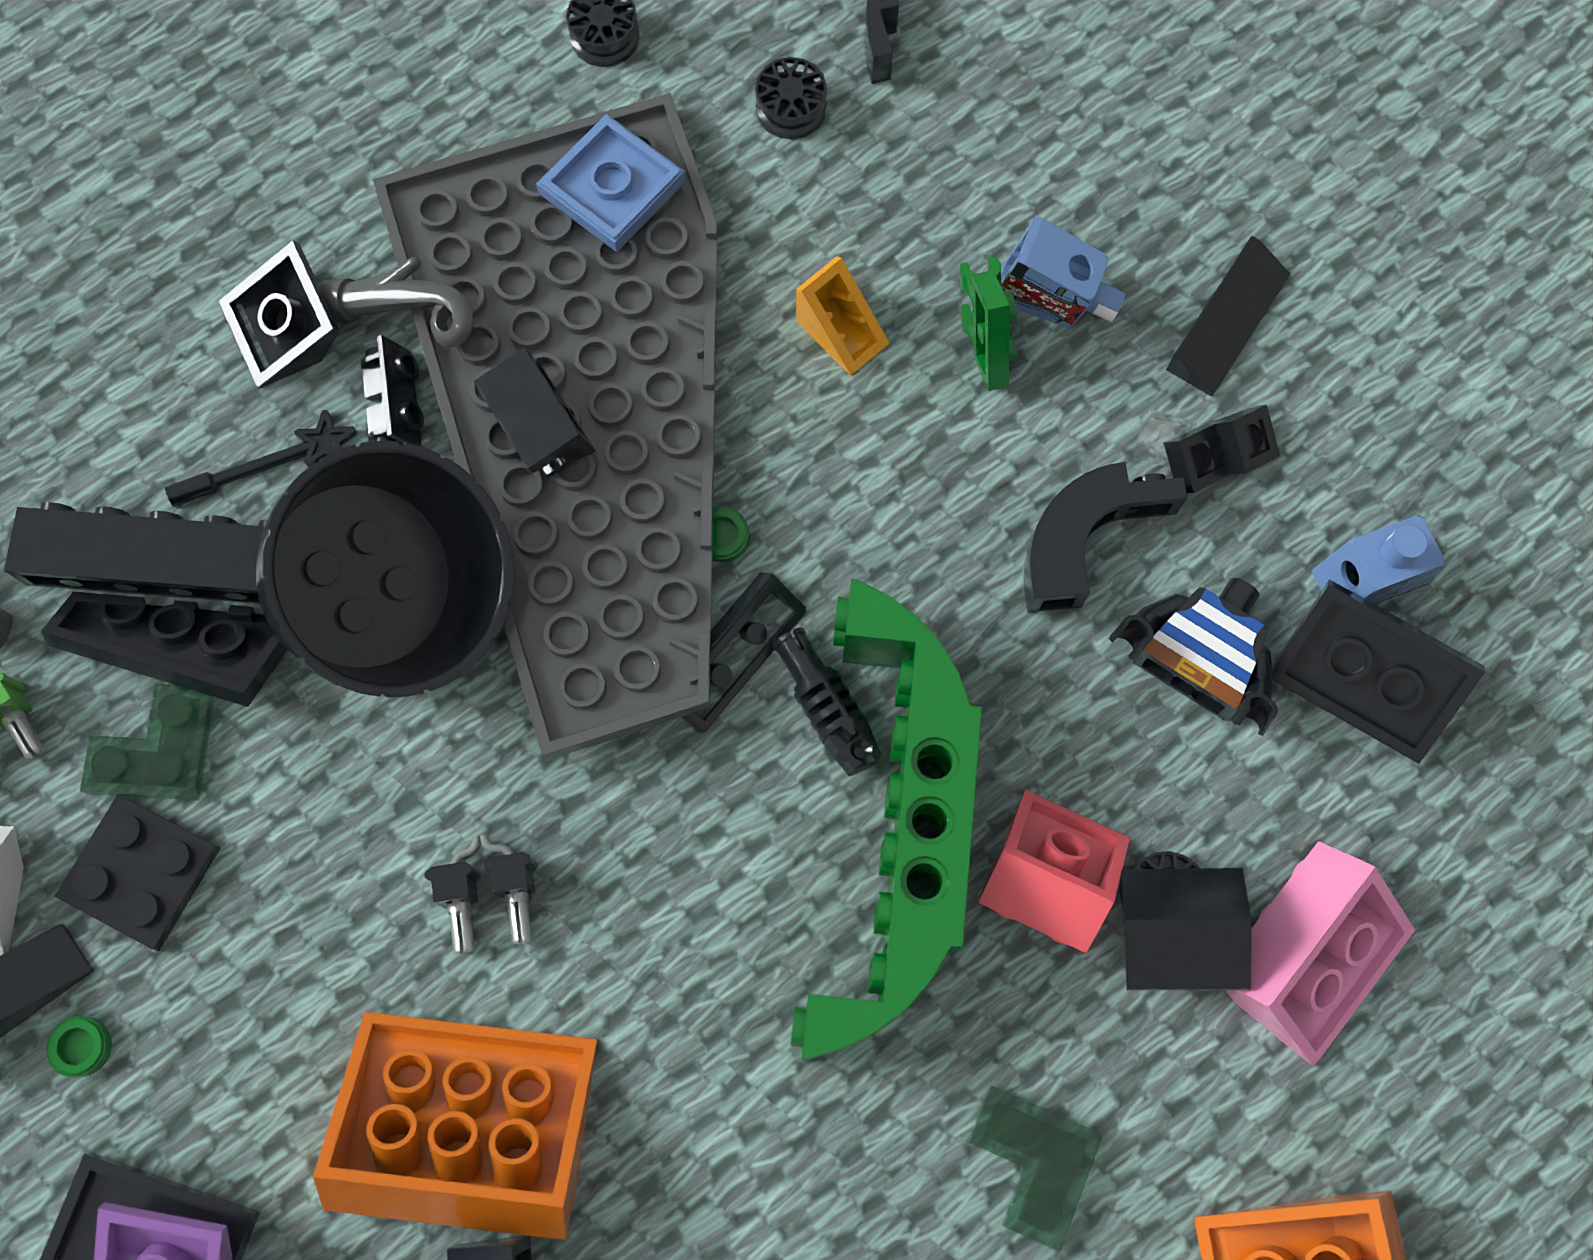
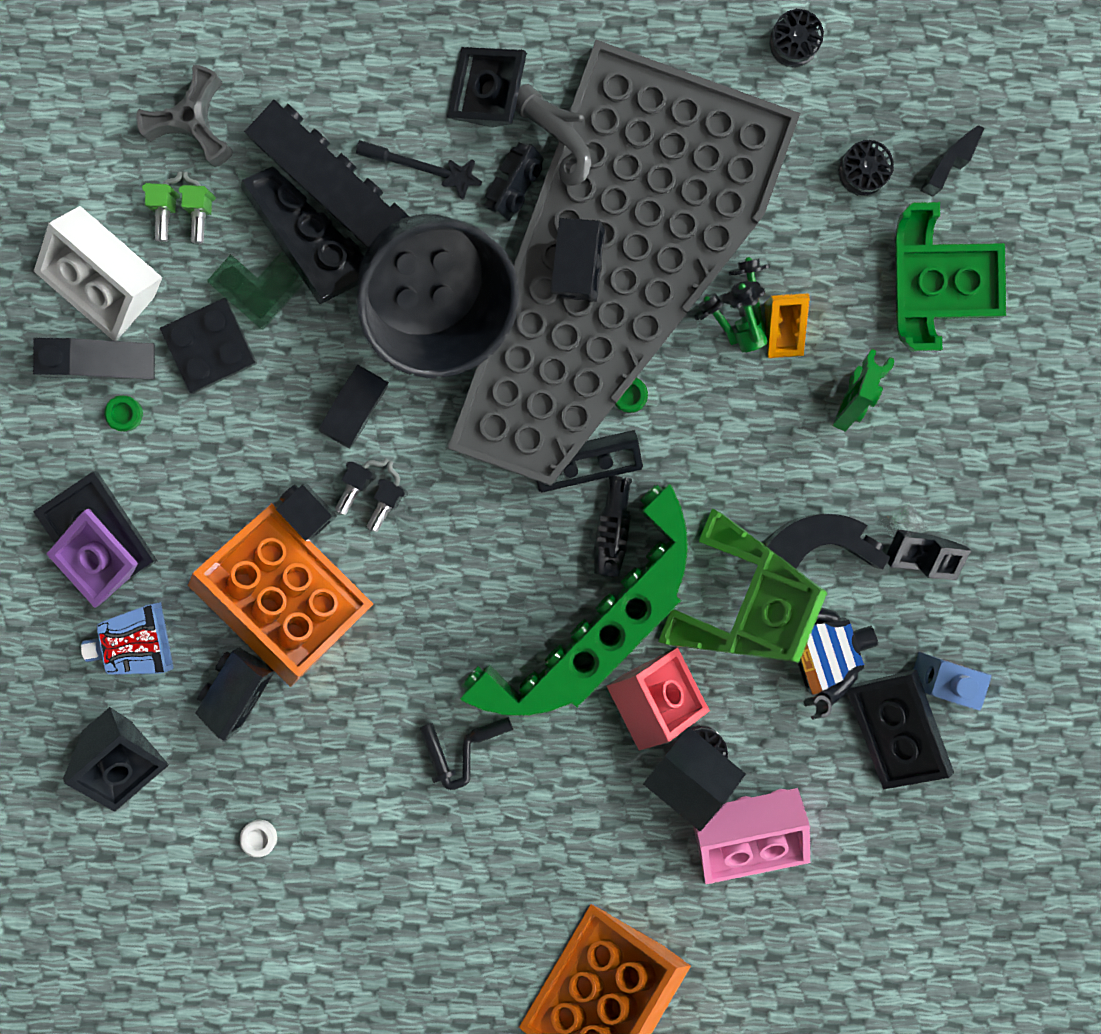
camera: 35 degrees right, 15 degrees up
(384, 805) = (353, 406): none -> black slope
(416, 983) = (305, 511): none -> black brick
(611, 182) = (724, 147): medium blue tile -> none
(805, 357) = (749, 329): none -> plant
(838, 1179) = (476, 736): none -> black piece
(974, 147) = (942, 279): none -> green piece
(1053, 1157) = (547, 824): clear green plate -> none
(1058, 276) = (920, 394): medium blue torso -> none
(1108, 639) = (774, 613): none -> bright green wing
(1229, 318) = (997, 485): black slope -> none

